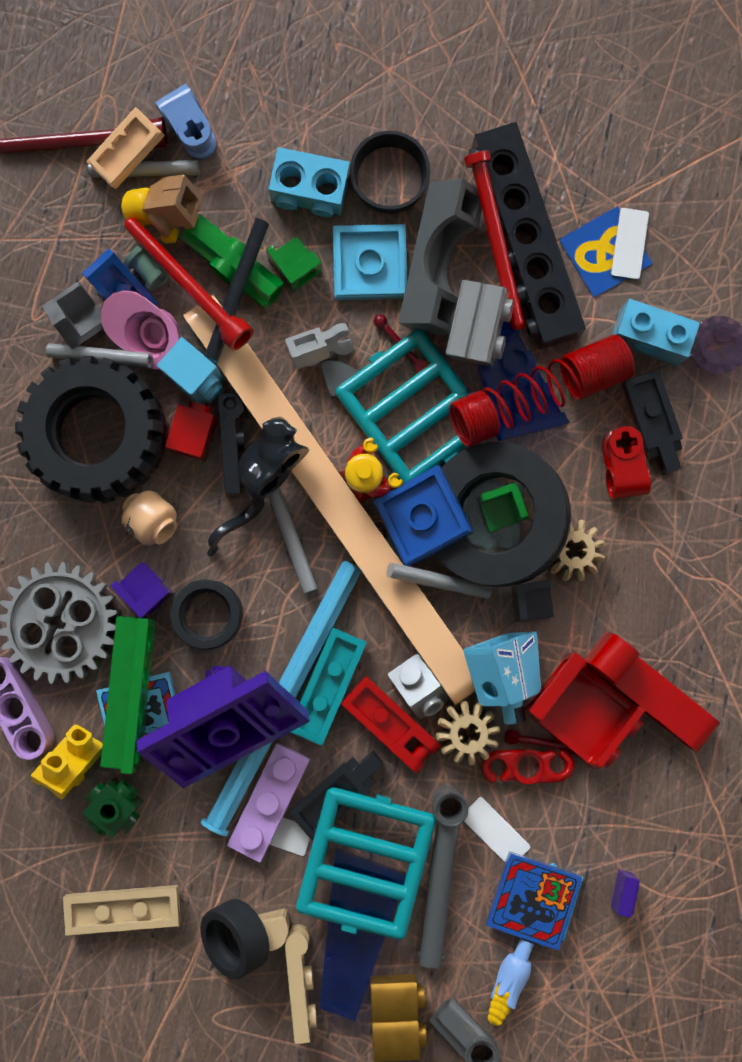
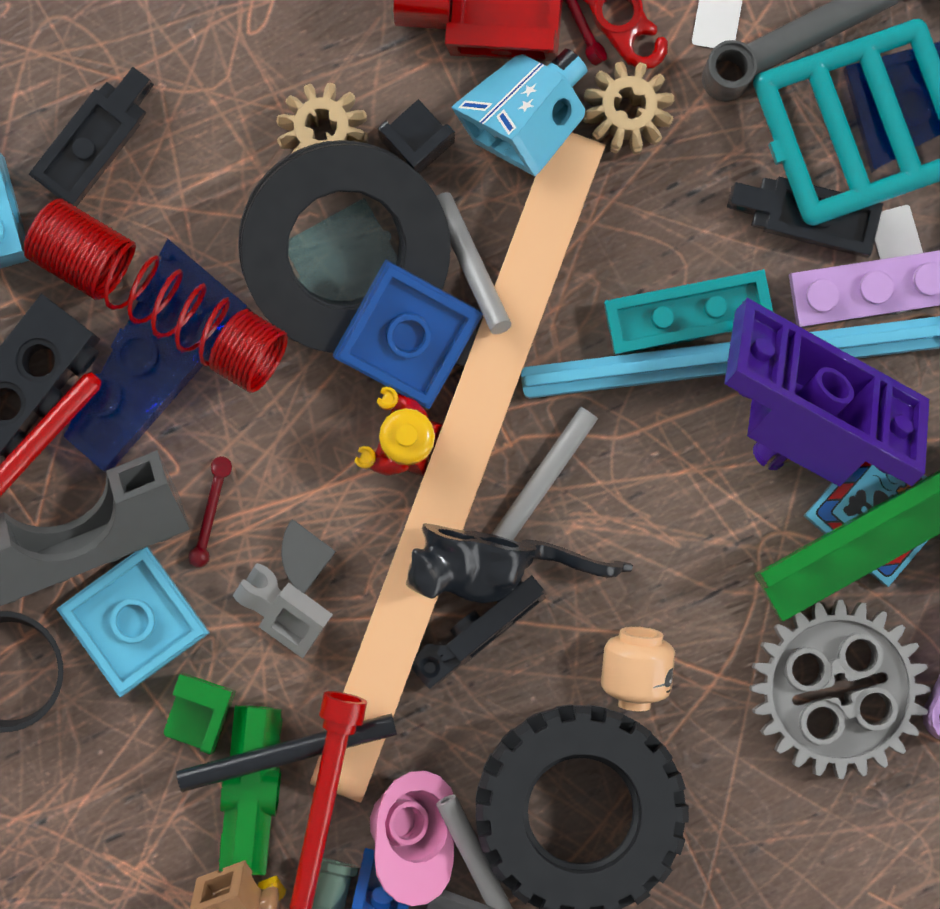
camera: 125 degrees left, 0 degrees up
(142, 590) = (729, 615): dark purple panel -> none
(178, 619) = (746, 517): black tyre -> none
(192, 372) = (426, 734): medium azure brick -> none
(192, 431) = (496, 690): red brick -> none
(313, 172) = (72, 768): medium azure brick -> none
(366, 419) = (333, 487): teal bar -> none
(390, 723) = (681, 208): red plate -> none
(419, 687) = (614, 203): bracket -> none
(479, 323) = (126, 425): light grey brick -> none
(502, 507) = (329, 248): green panel -> none
(625, 468) = (178, 131): red piece -> none

